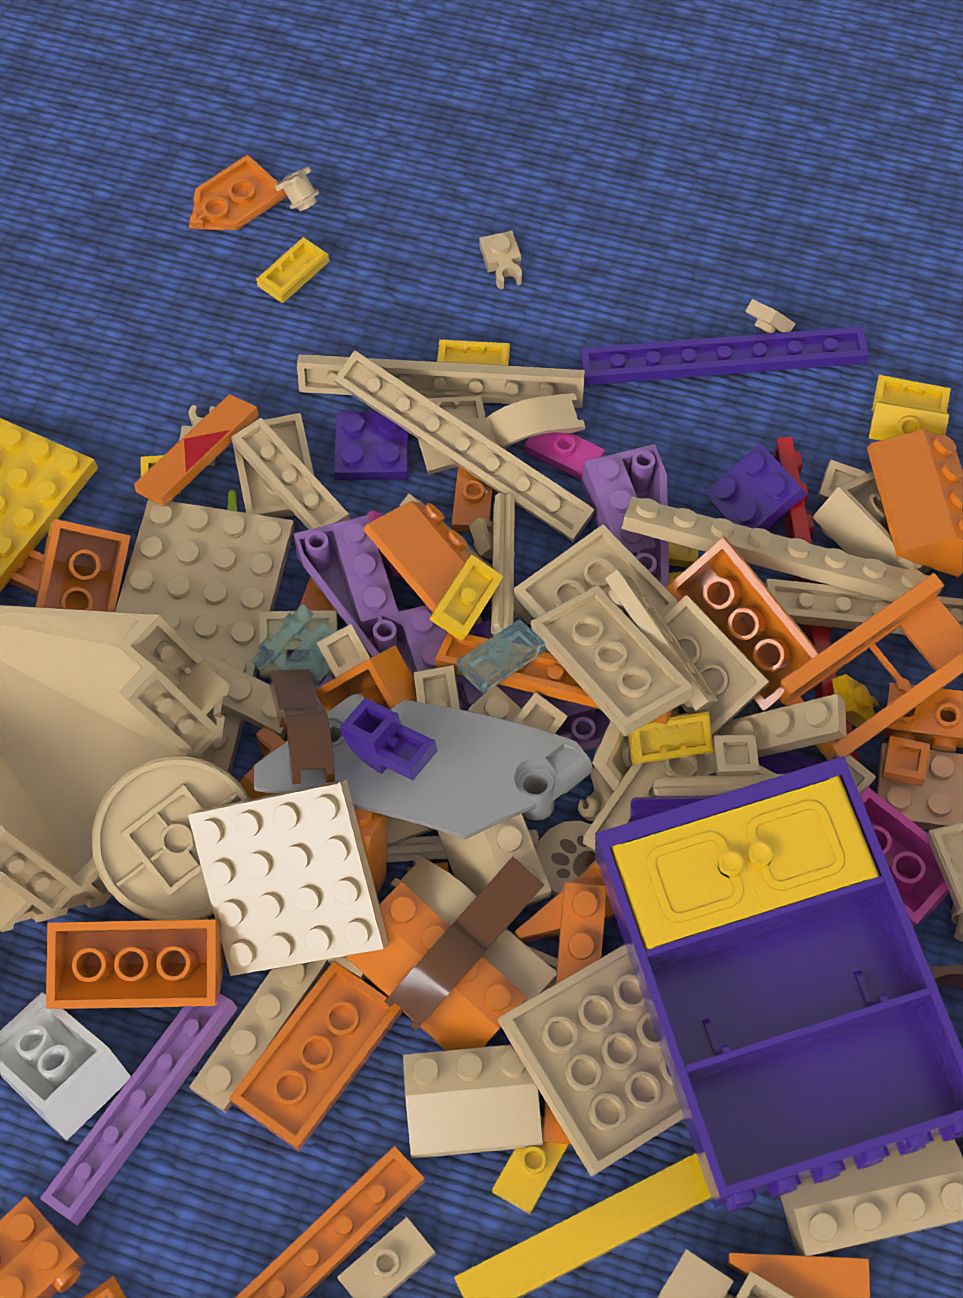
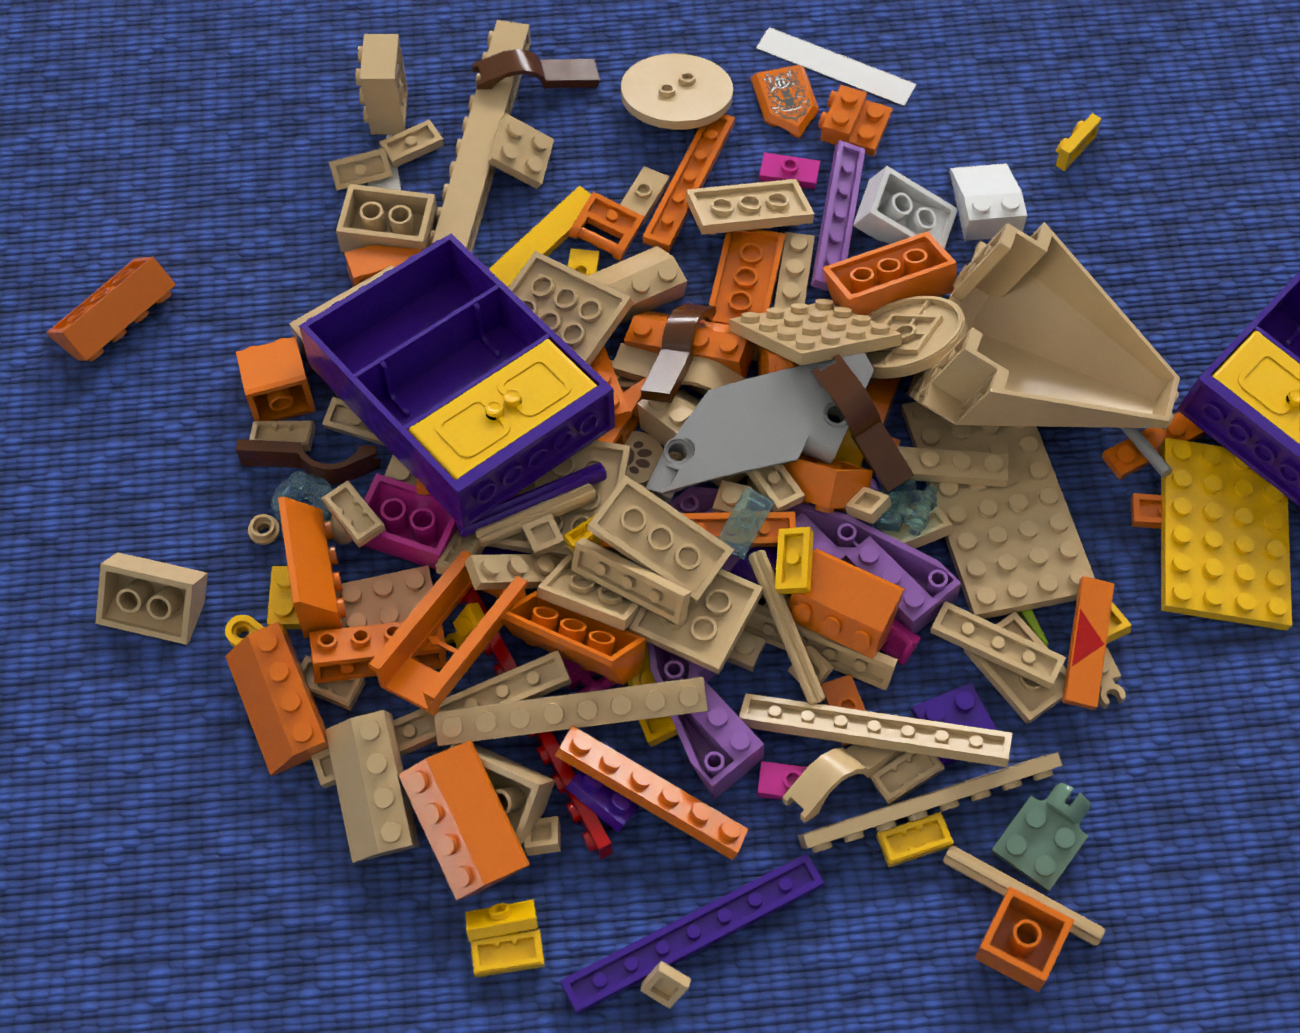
camera: 155 degrees right, 0 degrees up
(81, 568) = (1106, 507): orange slope -> none
(161, 1218) = (783, 167): none -> dark pink plate
(234, 197) = (1234, 938): orange tile -> none
(256, 1156) = (749, 206): none -> tan plate
(293, 270) = (1128, 871): yellow plate -> none
(299, 189) = (1179, 959): tan brick -> none
(348, 320) = (1044, 836): none -> sand green plate
(384, 742) = (792, 406): dark purple brick -> none
(399, 285) = (1000, 882): none -> tan axle
(424, 240) = (1024, 939): none -> orange brick
(455, 1231) = (611, 219): none -> orange plate
(502, 256) = (950, 972): tan plate -> none
(541, 715) = (697, 499): tan plate -> none
(721, 467) = (652, 792): none -> orange plate
(905, 761) = (413, 592): orange plate -> none

